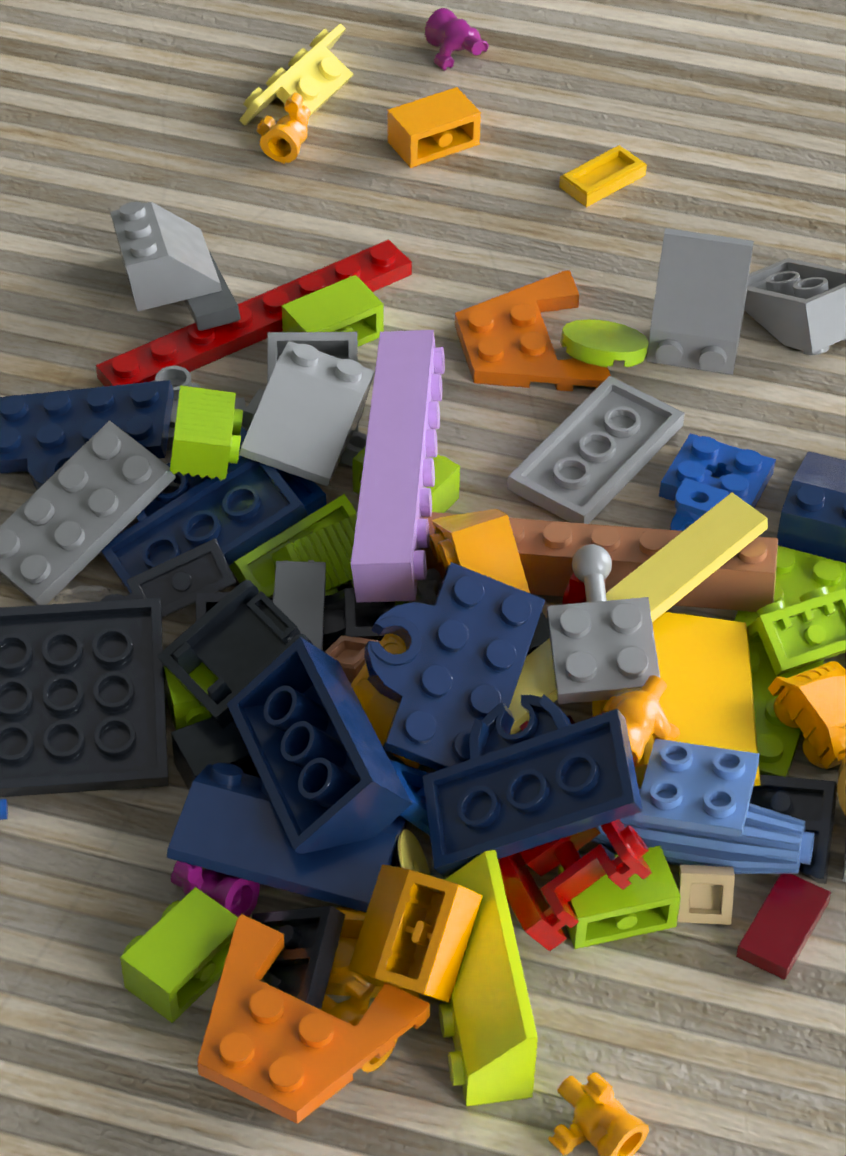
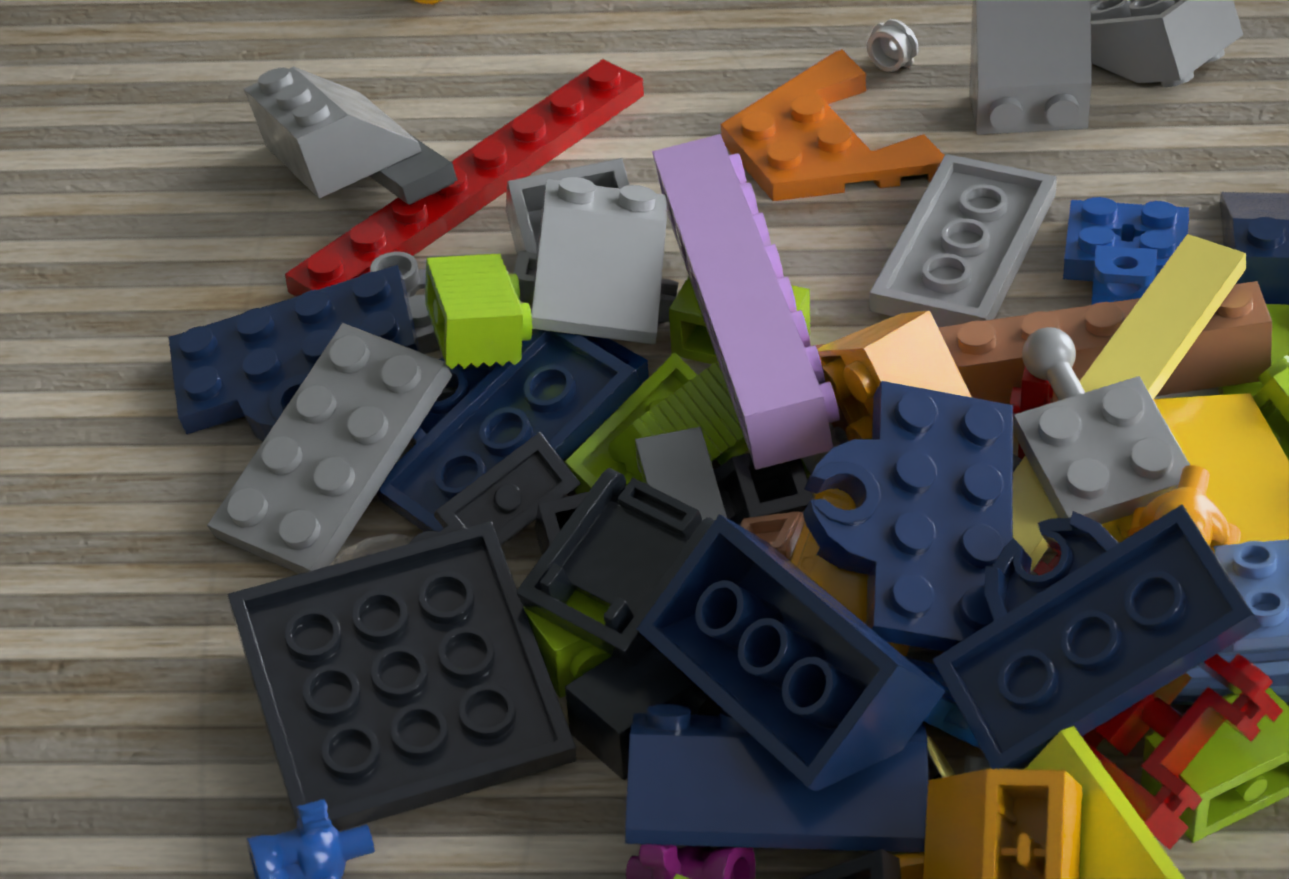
camera: 10 degrees left, 5 degrees down
(337, 308) = (574, 140): lime brick -> none
(603, 342) = (922, 119): lime tile -> none
(608, 275) = (892, 46): none -> white plate

